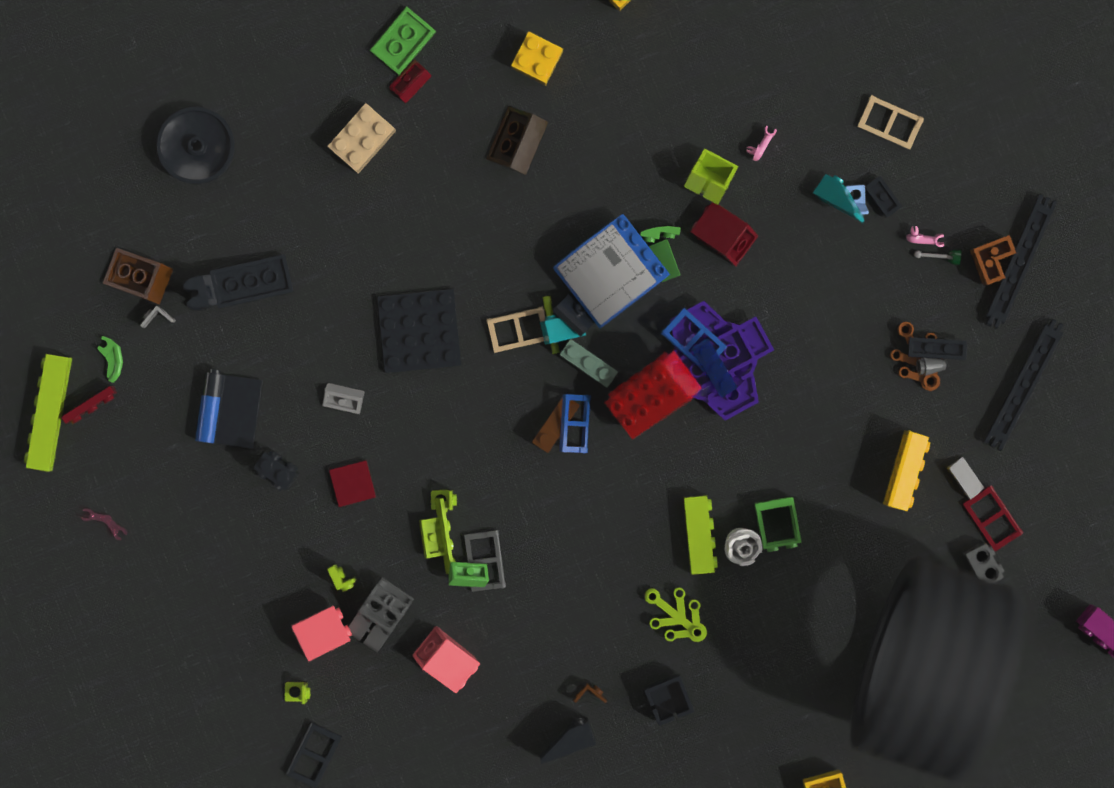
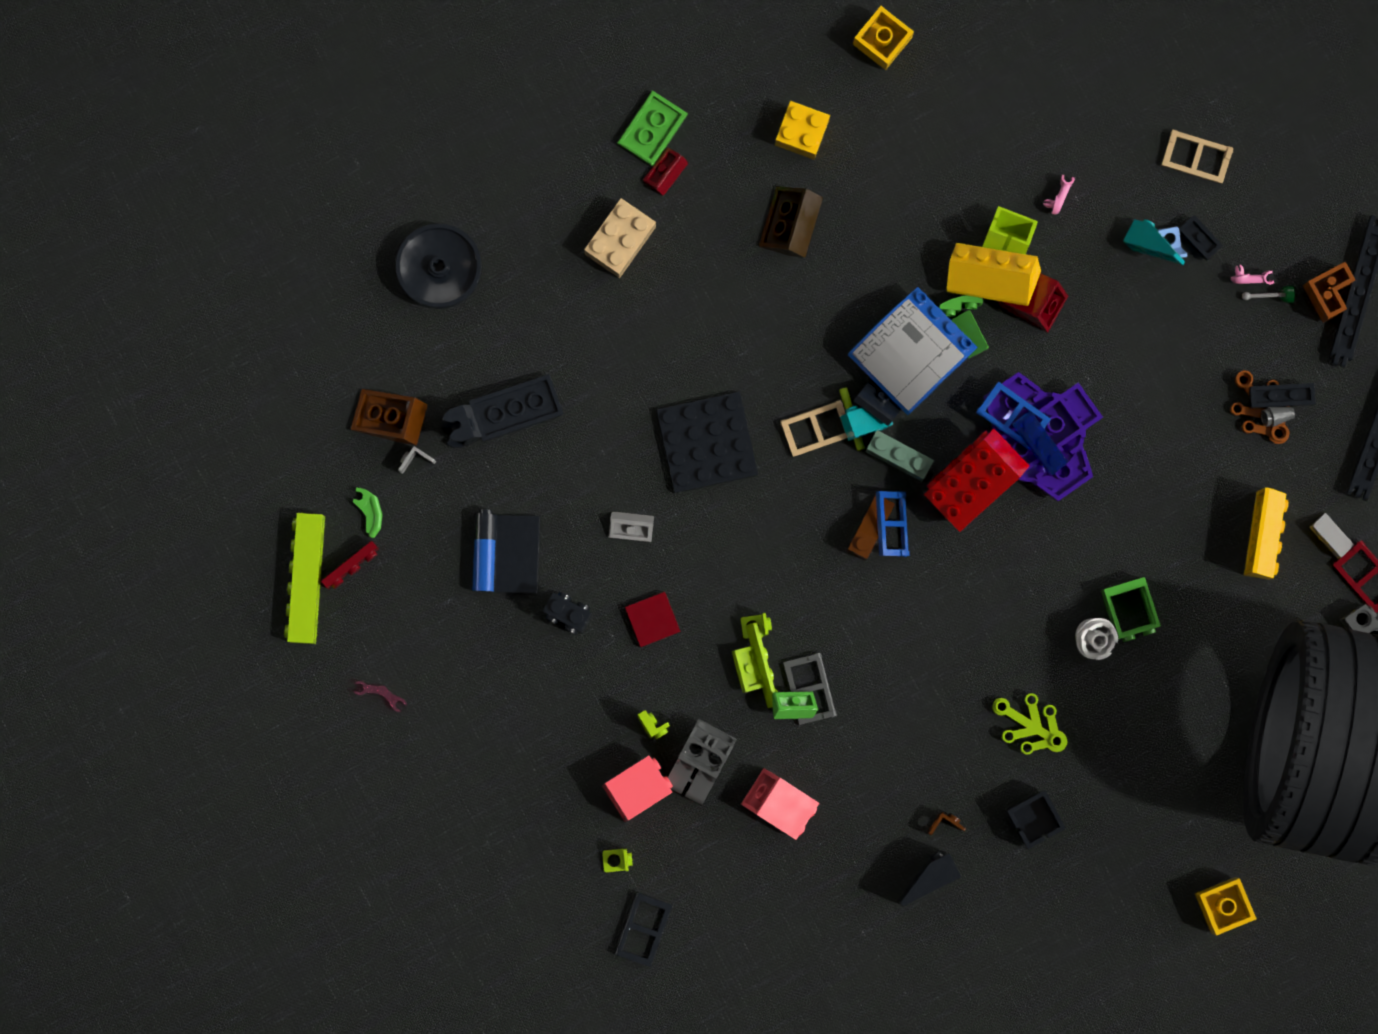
camera: 10 degrees left, 5 degrees down
(691, 210) = (993, 274): none -> yellow slope
(699, 534) = (1045, 632): lime brick -> none

